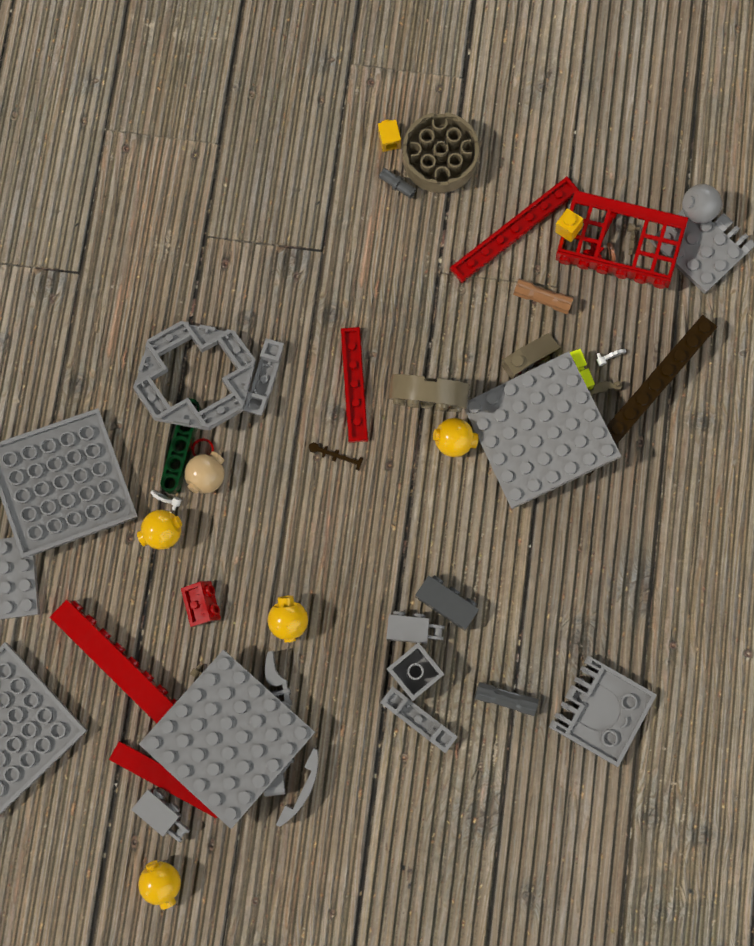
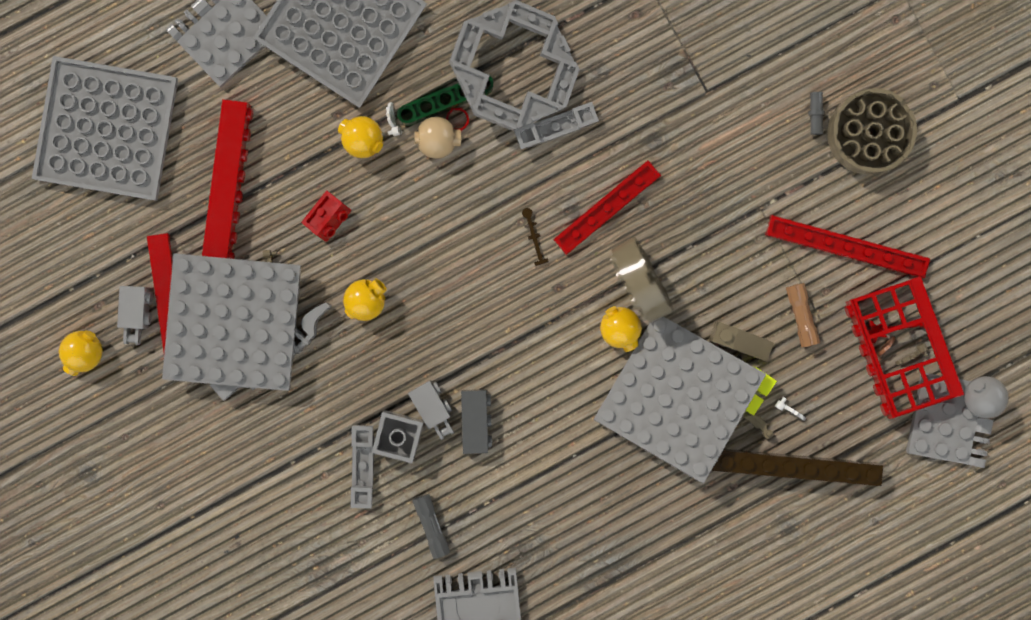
camera: 50 degrees right, 10 degrees up
(312, 765) = (212, 414): light grey slope -> none
(389, 135) = (856, 73): yellow brick -> none
(569, 225) = (882, 295): yellow brick -> none

